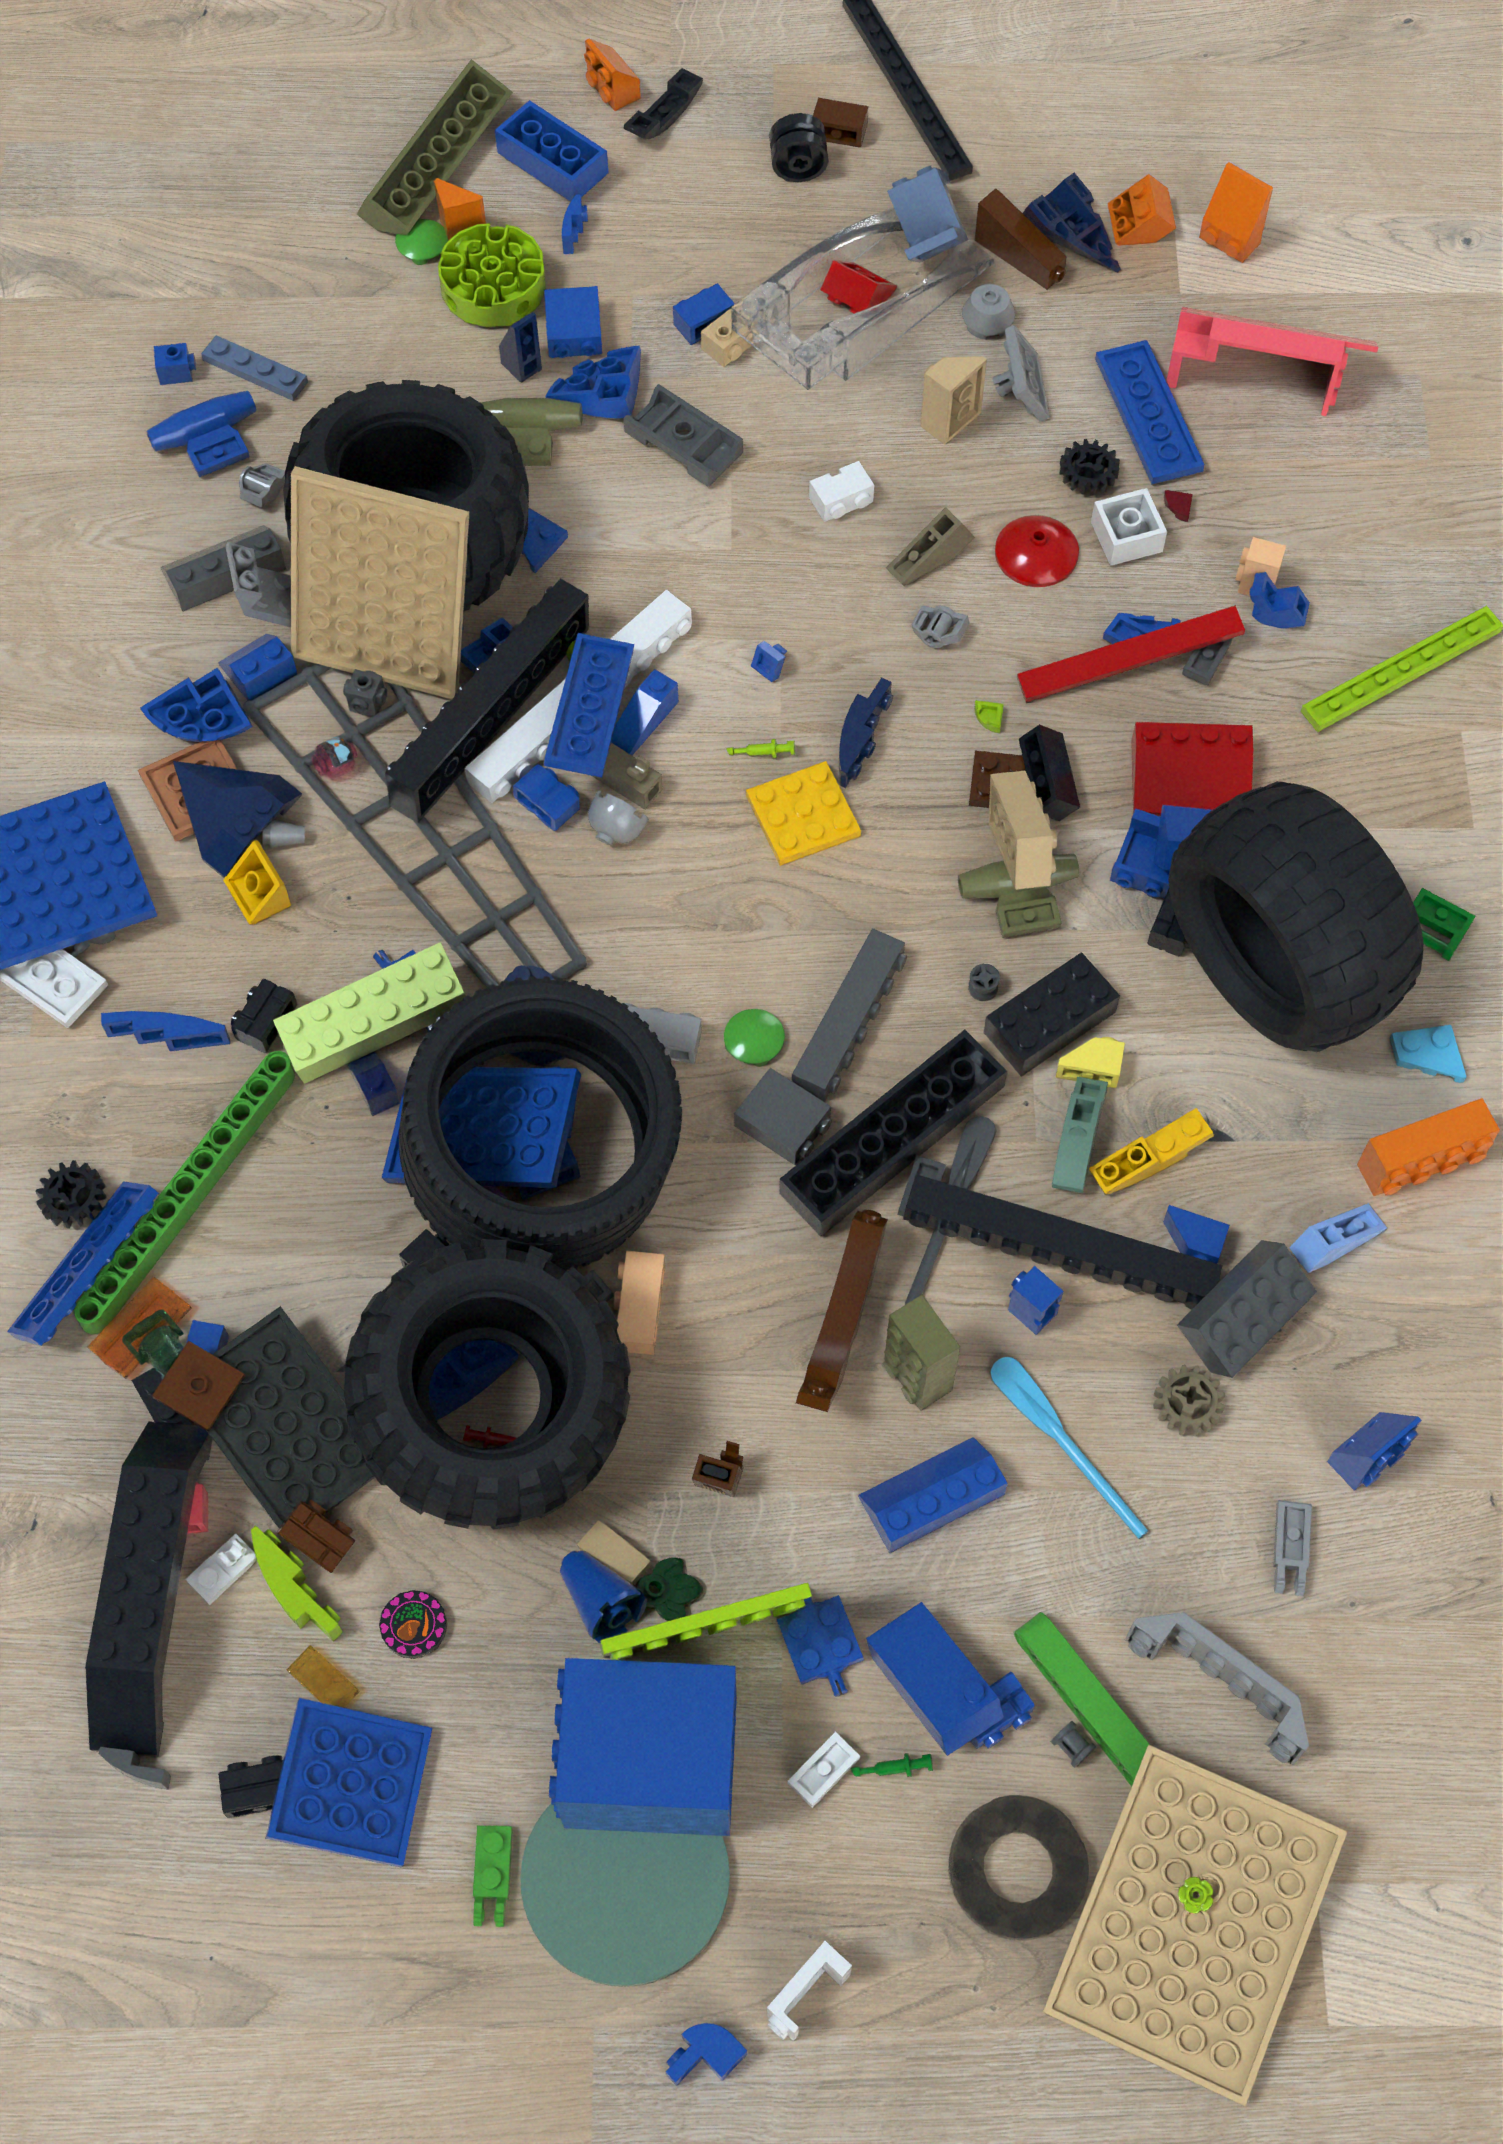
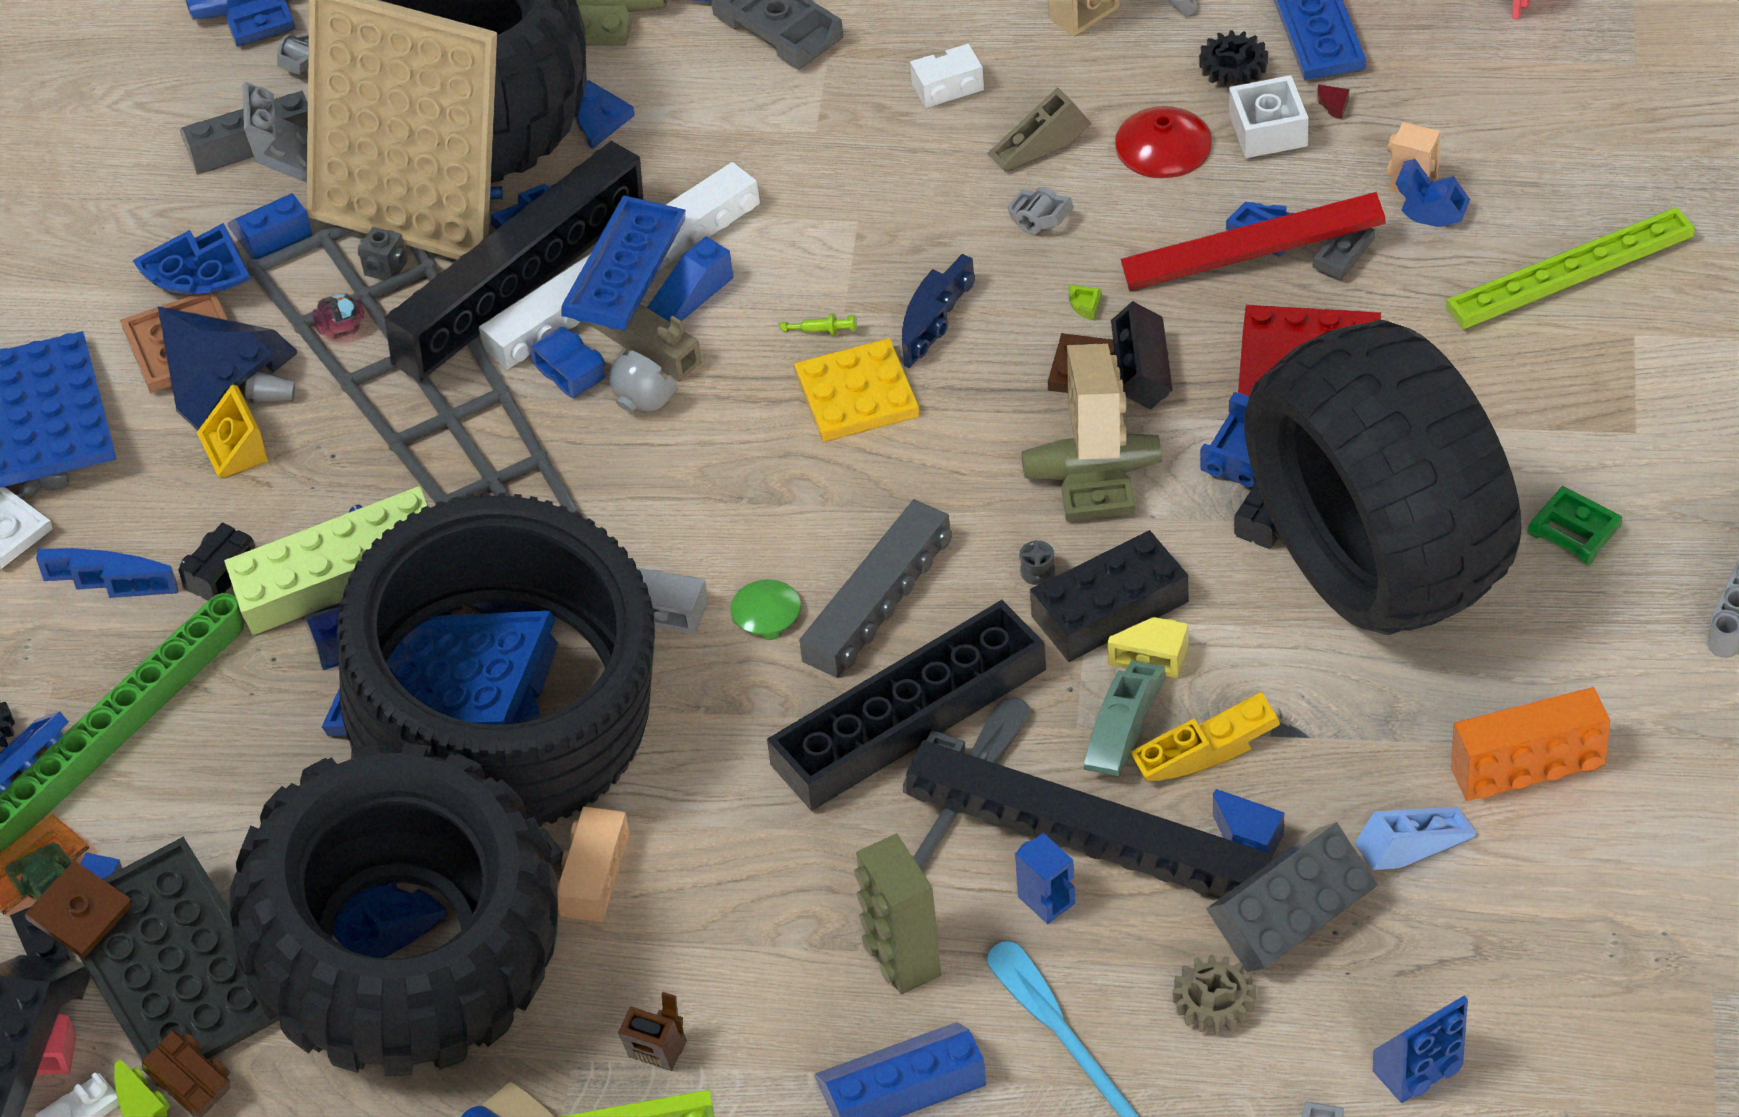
camera: 10 degrees right, 15 degrees down
(769, 660) = (839, 237): blue tile -> none
(783, 1116) = (782, 682): dark grey brick -> none
(844, 1311) = (798, 922): reddish brown arch -> none
(1429, 1050) = (1550, 654): medium azure wing -> none

